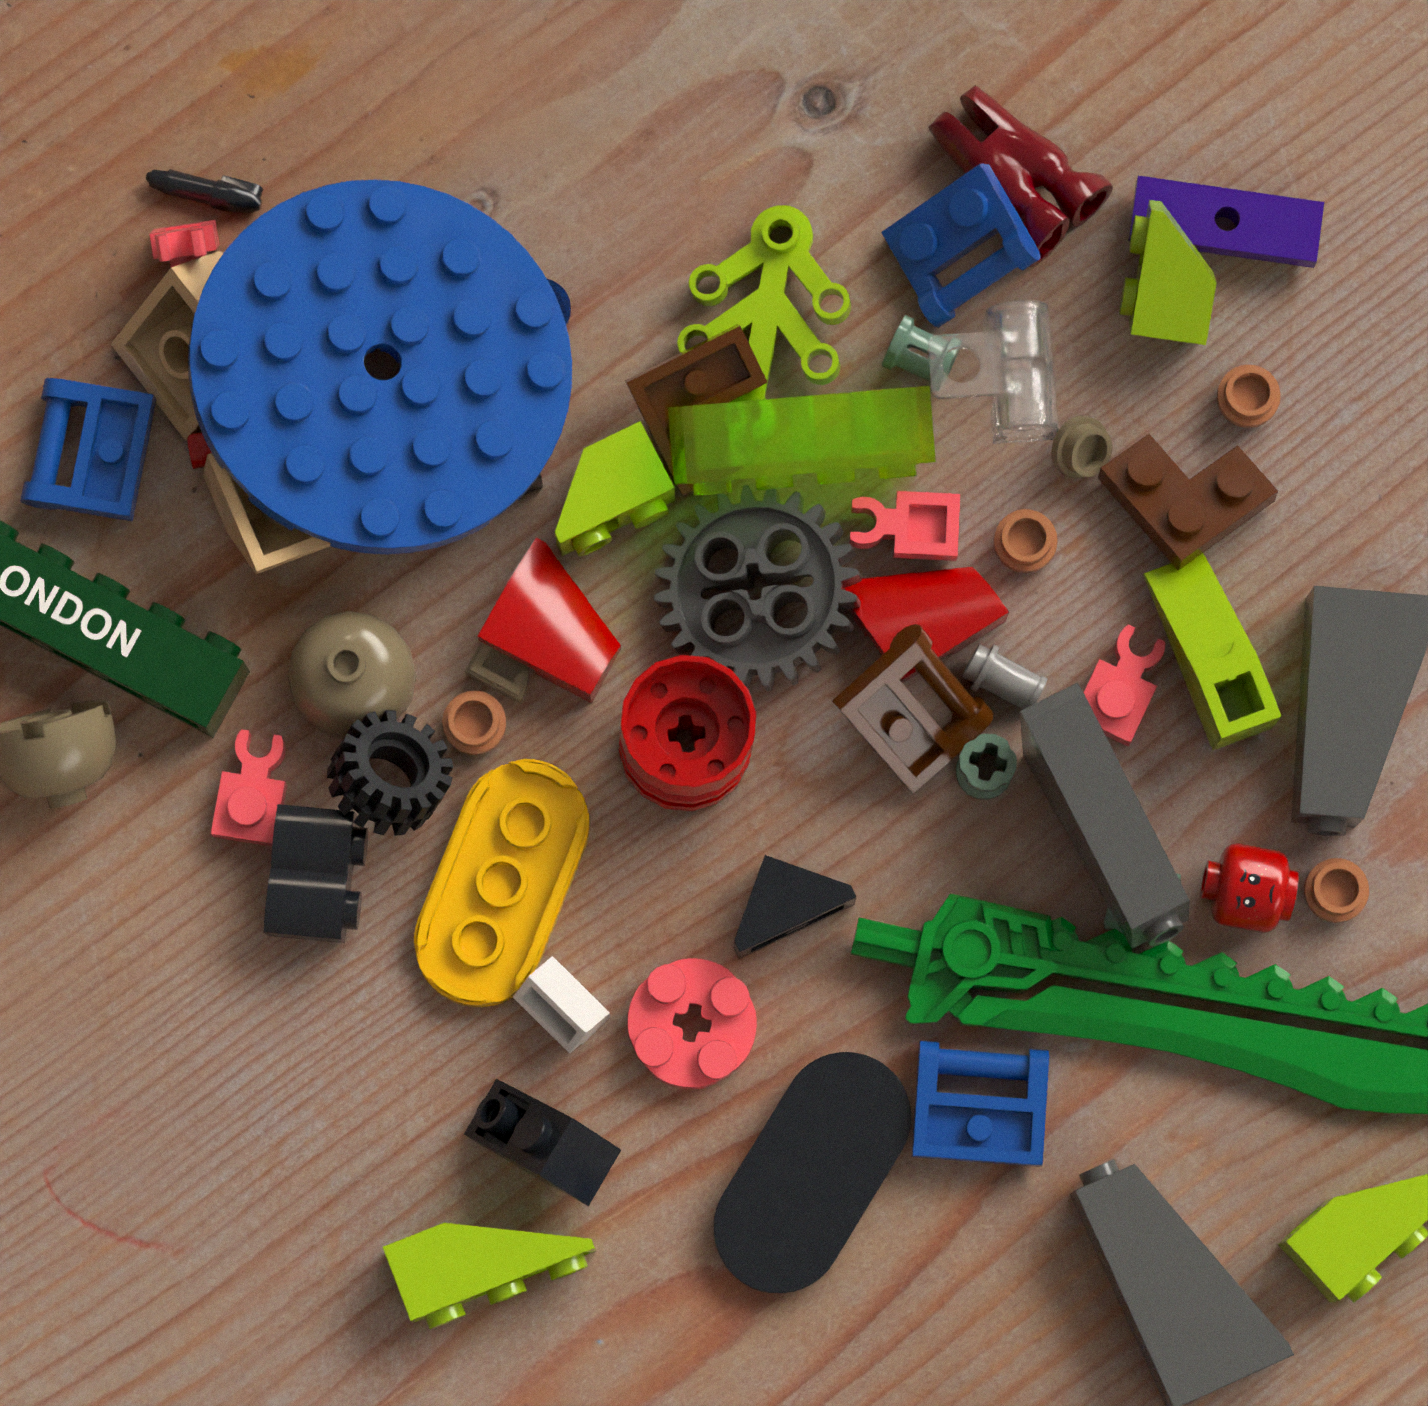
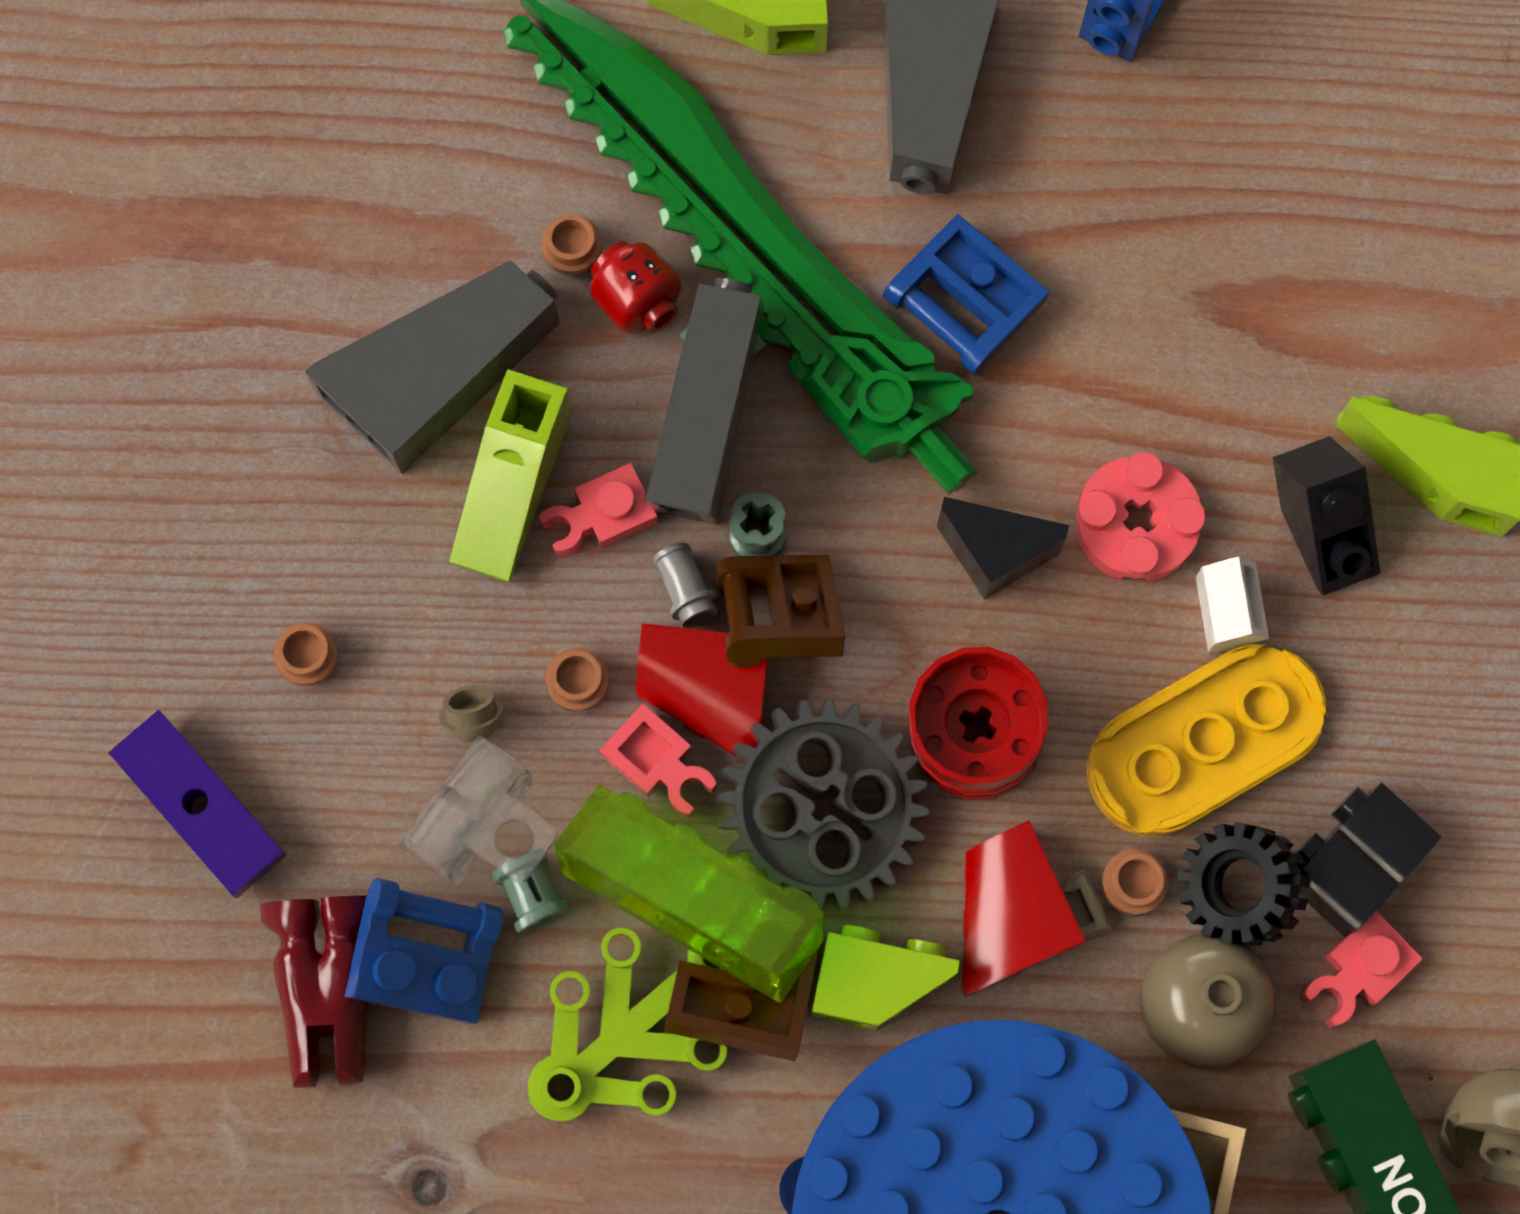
camera: 140 degrees left, 5 degrees down
(812, 1172) = (1131, 344): black tile -> none
(1172, 282) = (286, 780): lime slope -> none
(1186, 513) = (438, 600): reddish brown plate -> none

